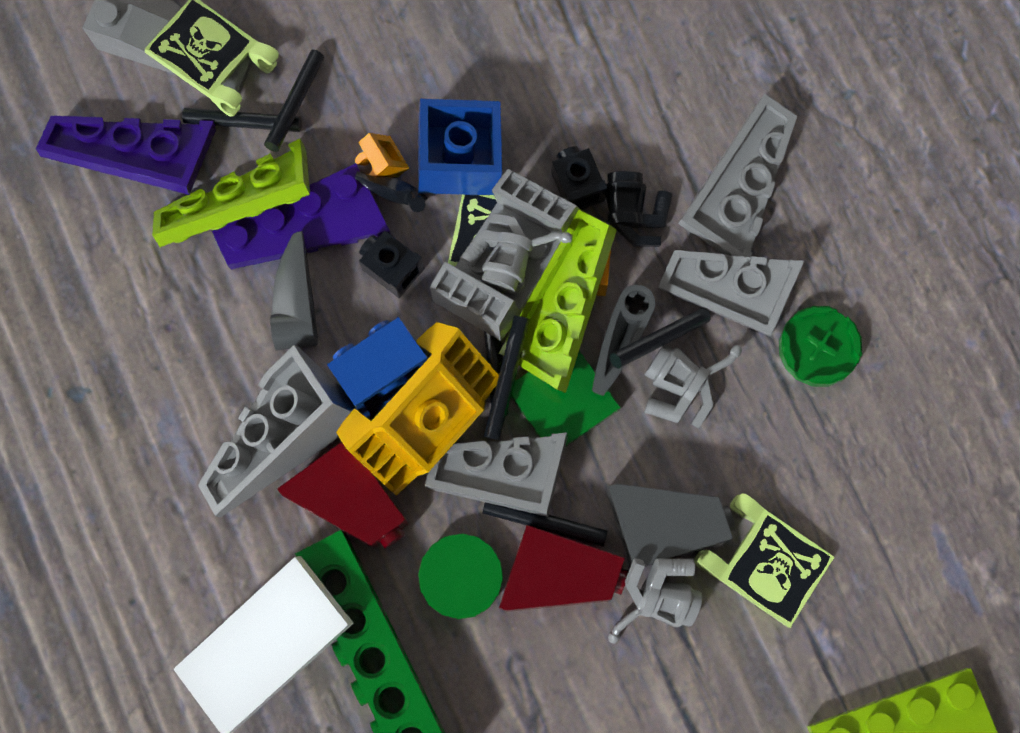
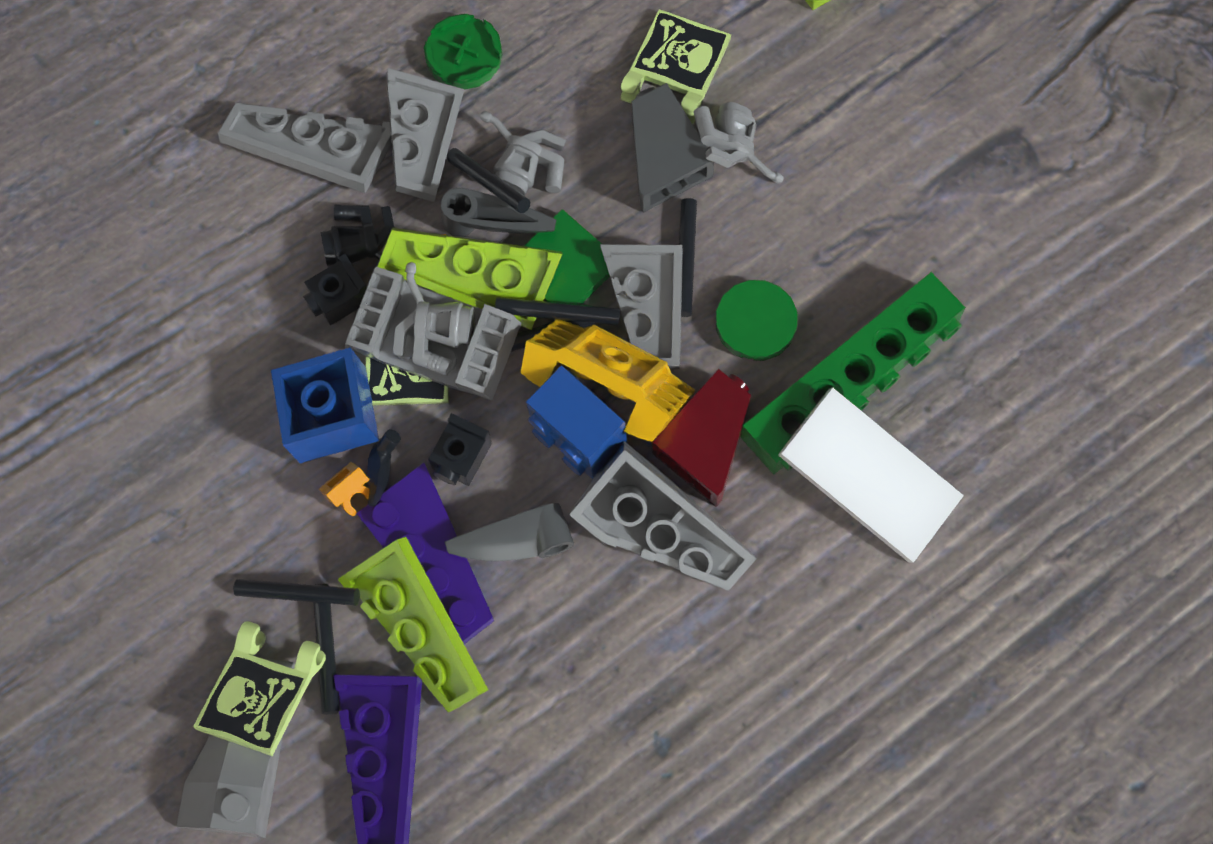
camera: 100 degrees left, 5 degrees down
(560, 573) = (734, 231): dark red slope -> none

